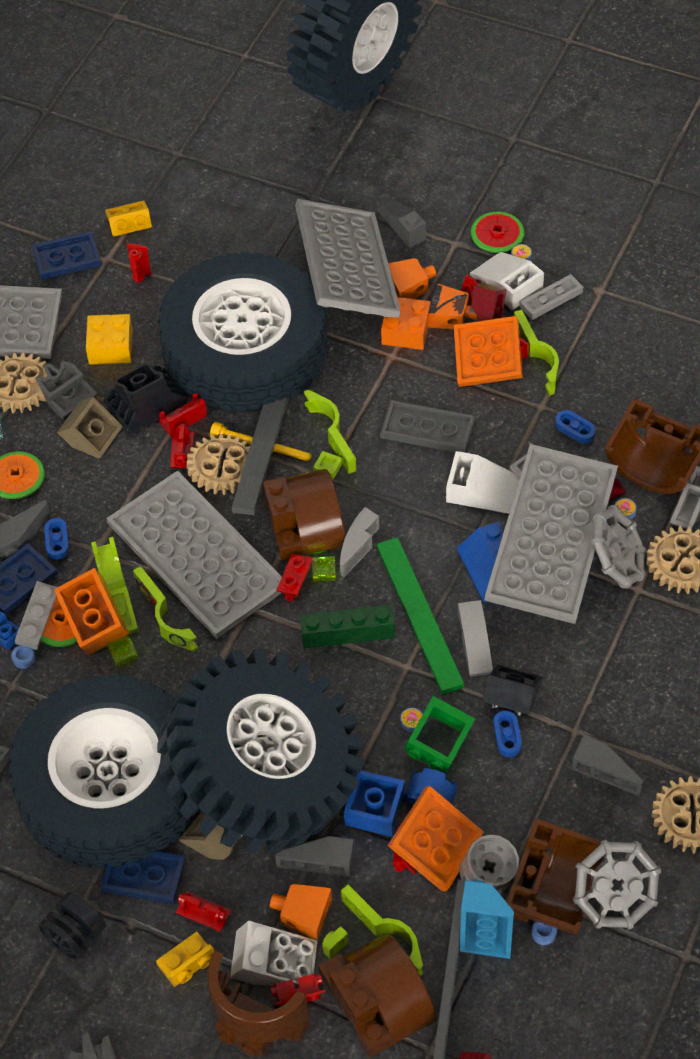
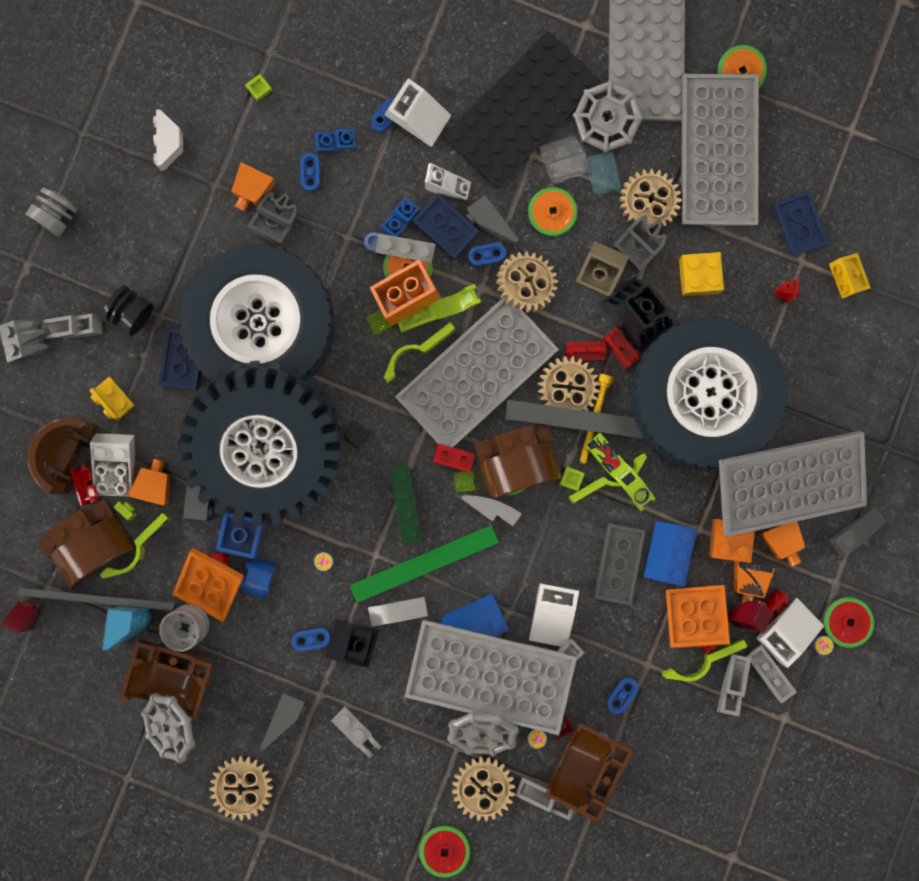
camera: 80 degrees right, 30 degrees up
(83, 1004) = (73, 326): none -> light grey slope
(95, 498) = (512, 289): none -> tan gear
(202, 911) = (152, 408): red hinge -> none
(319, 419) = (620, 471): none -> piece
(417, 377) = (670, 553): none -> blue slope
(448, 715) = (313, 570): green window -> none
(565, 327) = (734, 685): none -> light grey slope
(619, 691) = (355, 730): none -> light grey hinge

